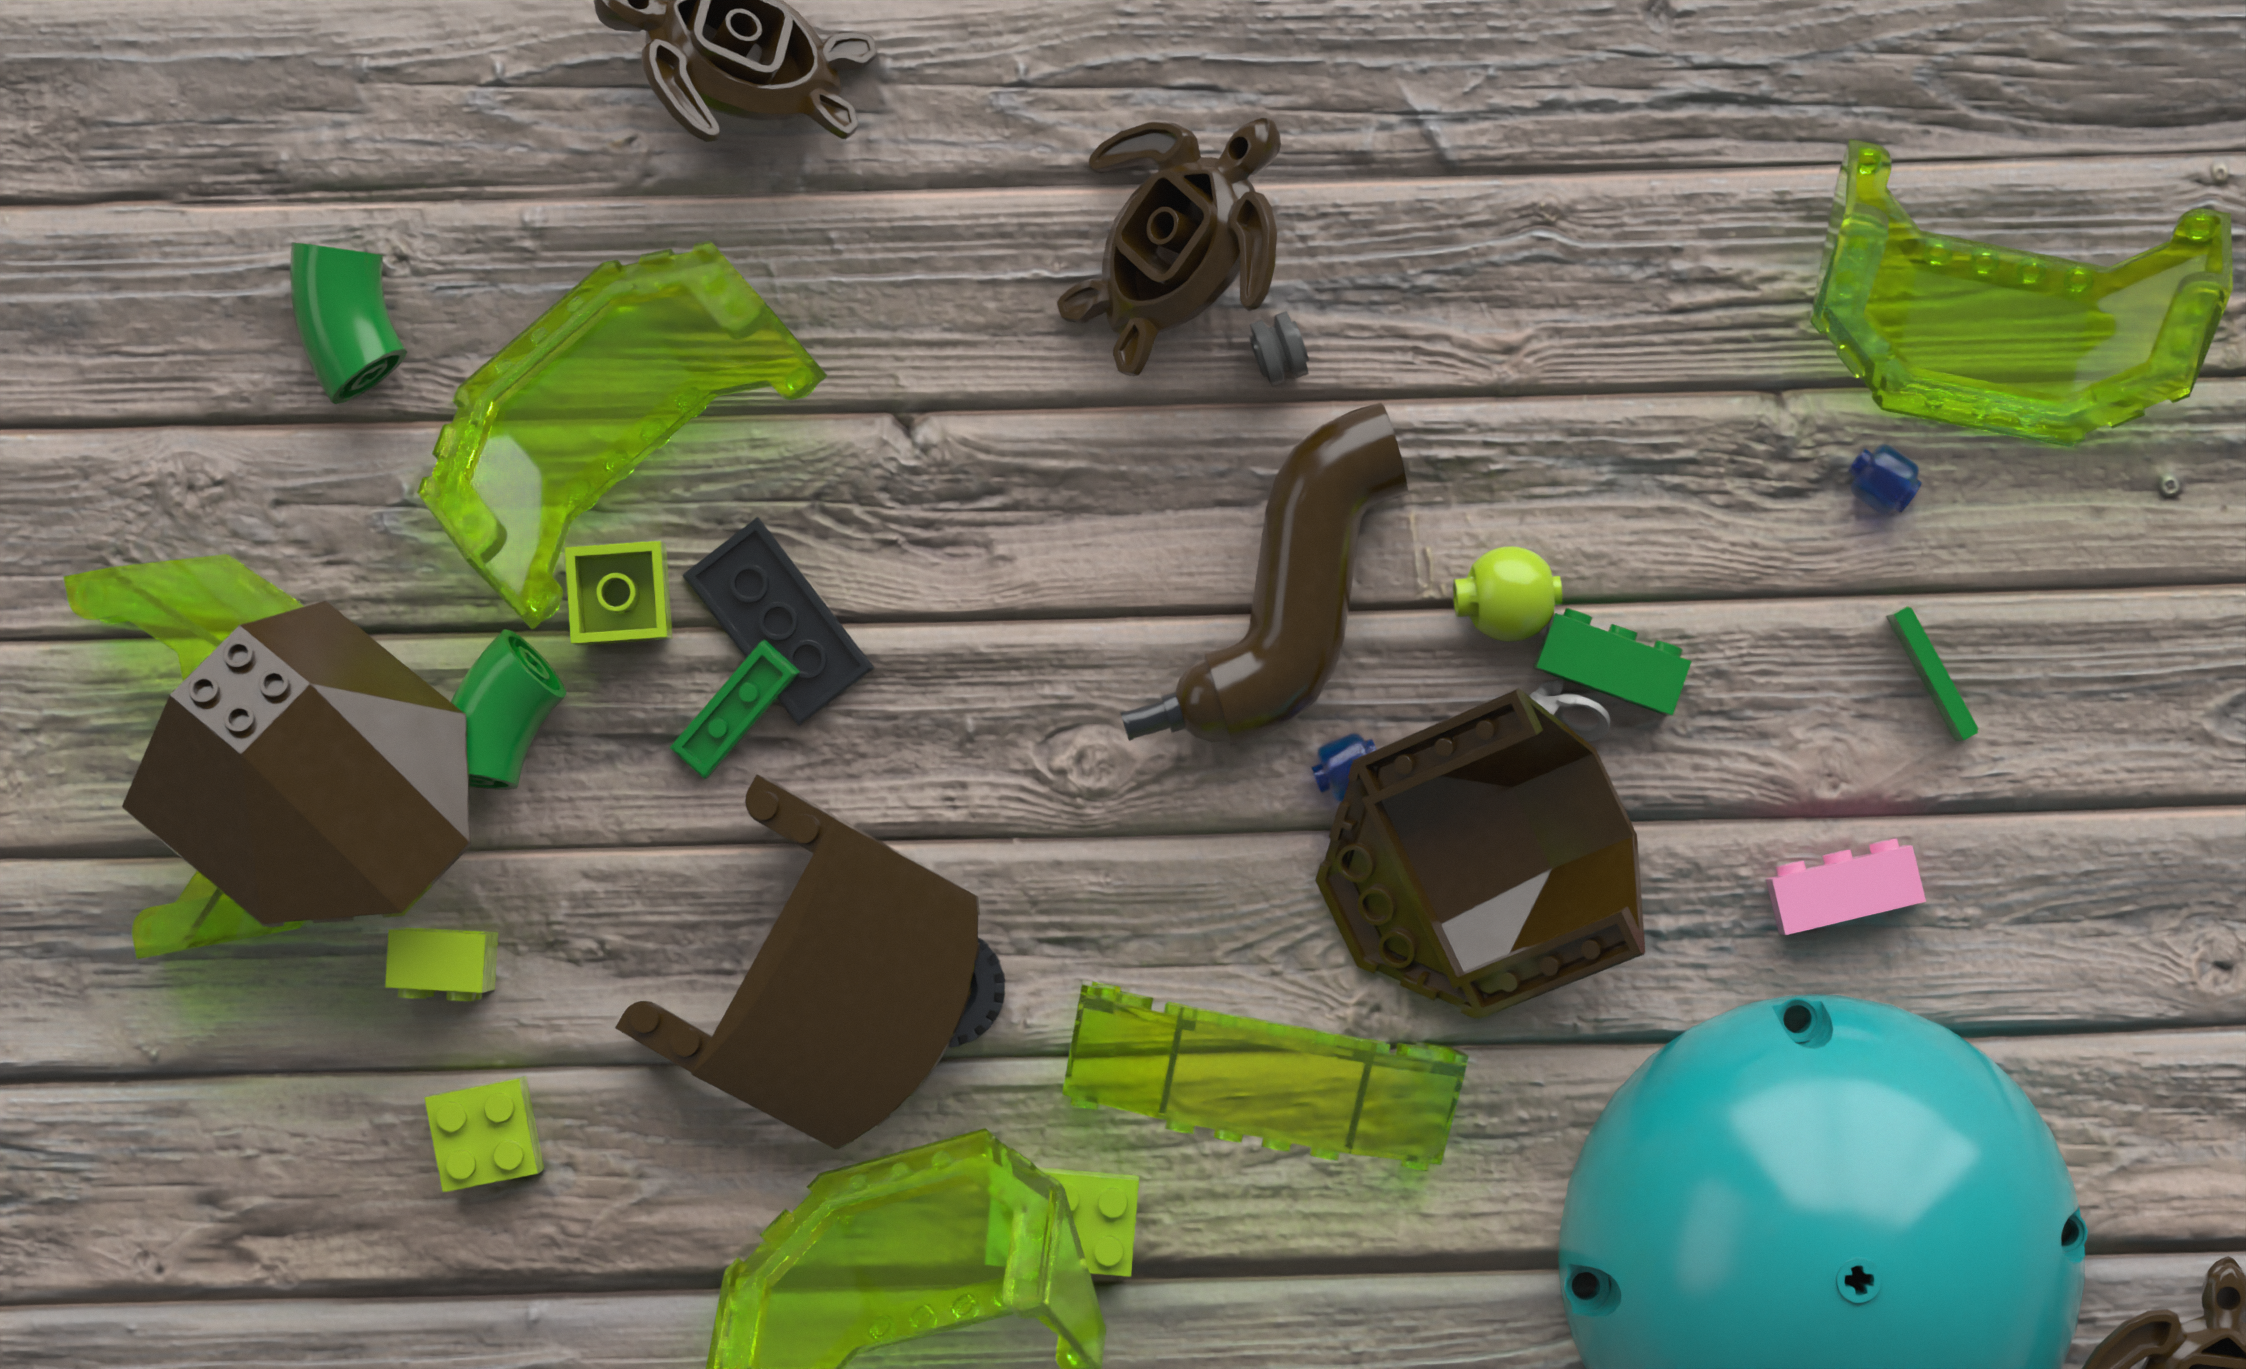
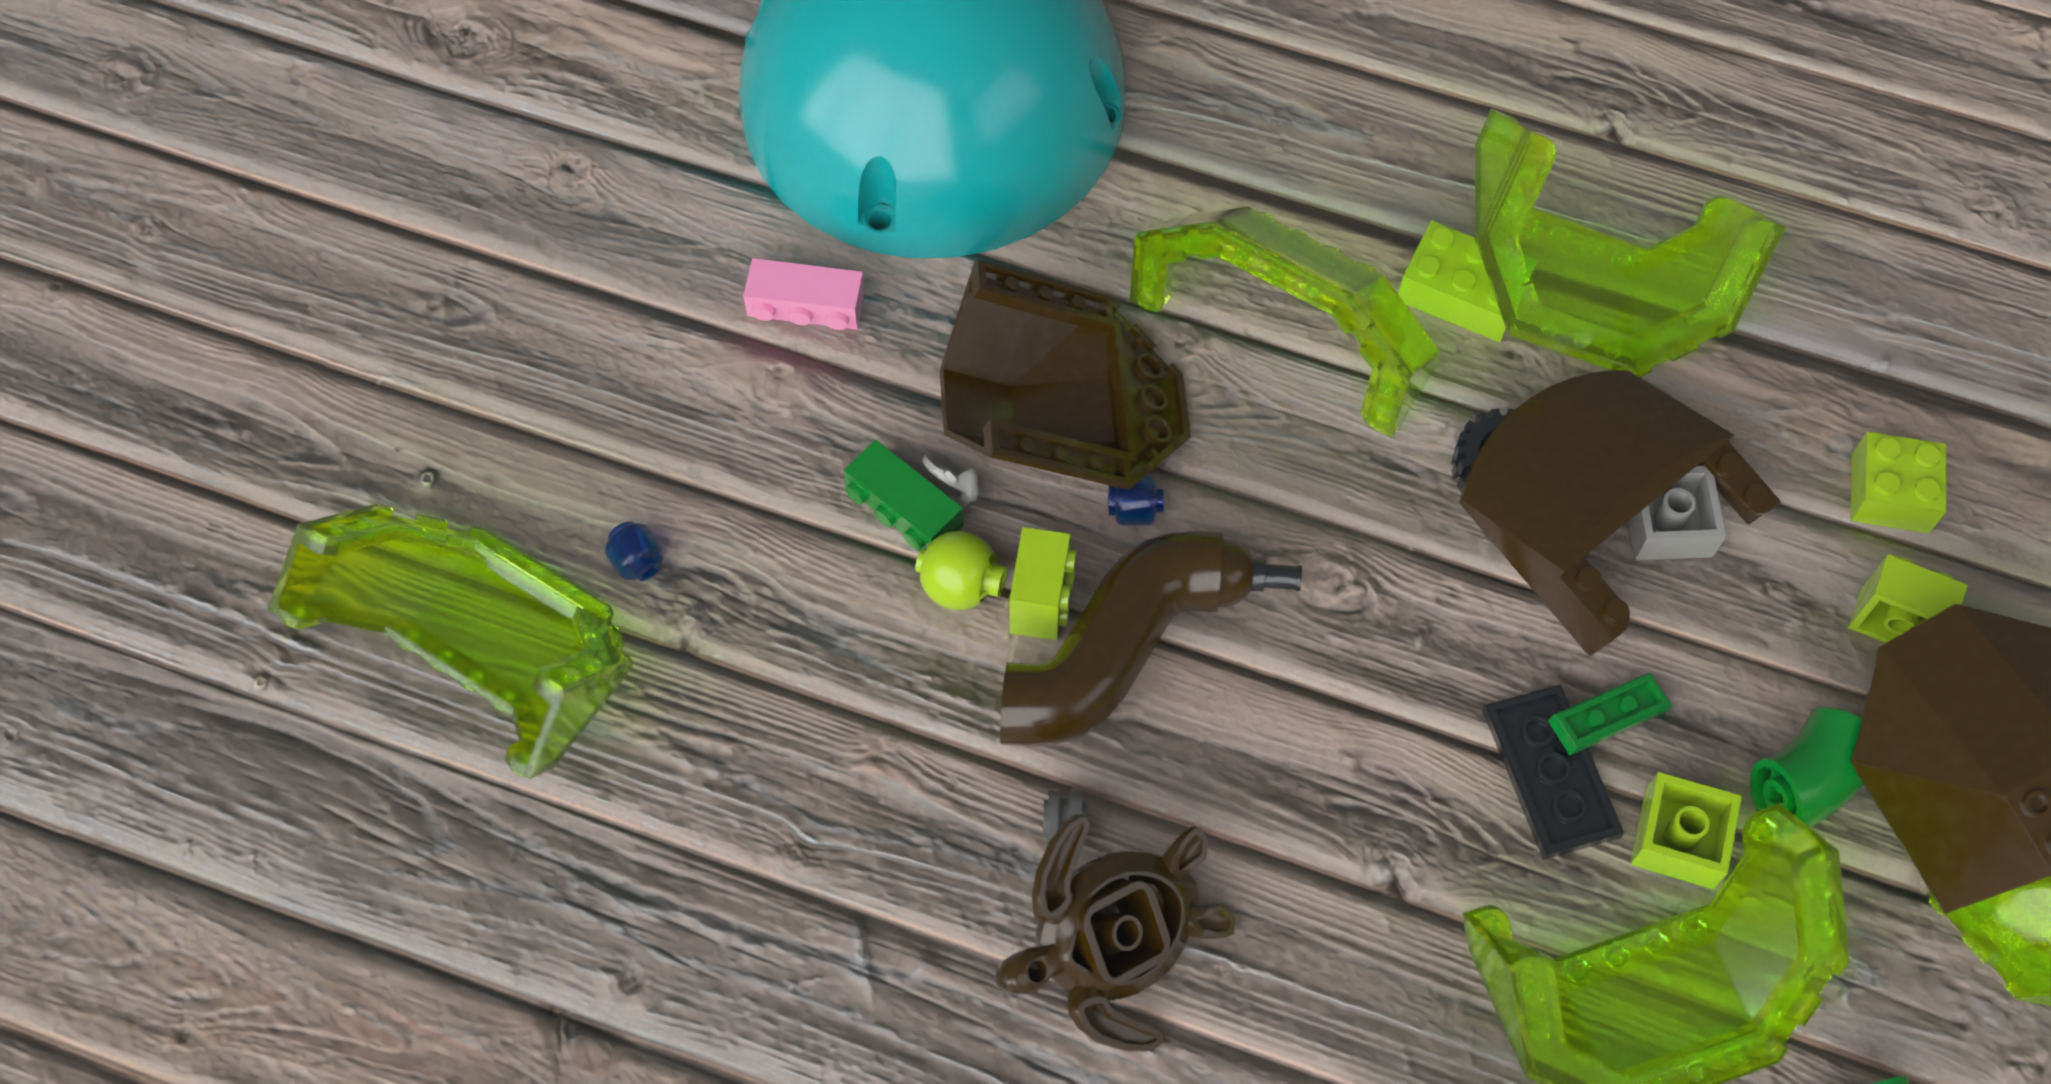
camera: 160 degrees left, 25 degrees down
(713, 973) = (1681, 521): none -> light grey brick
(1409, 606) = (1042, 583): none -> lime brick
(1933, 673) = (669, 408): green tile -> none

